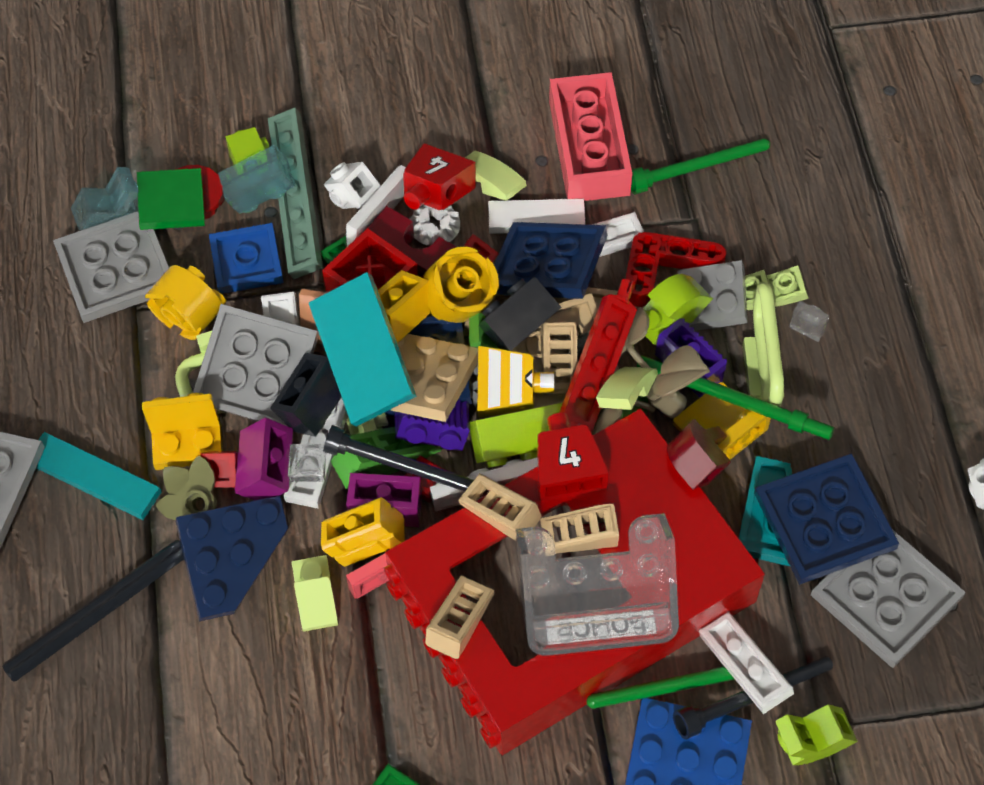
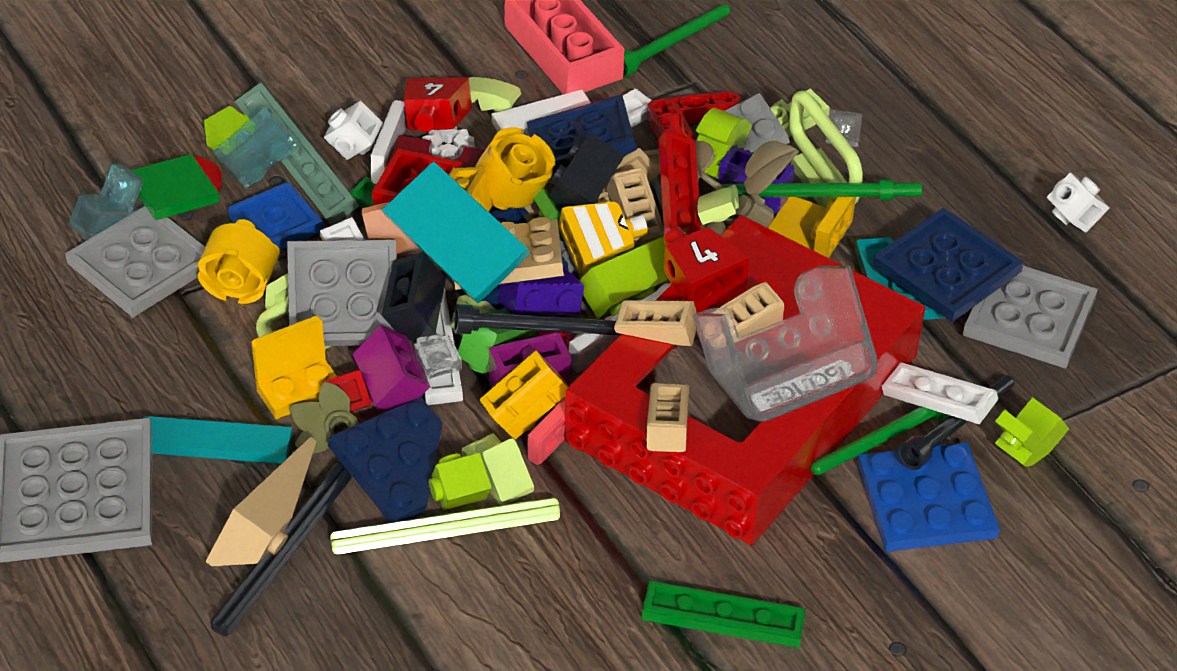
camera: 25 degrees left, 15 degrees down
(76, 586) = (262, 517): none -> tan wedge
(242, 637) = (444, 525): none -> yellowish green axle
(268, 599) = (459, 481): none -> lime brick
(697, 454) = (815, 232): dark red brick -> none

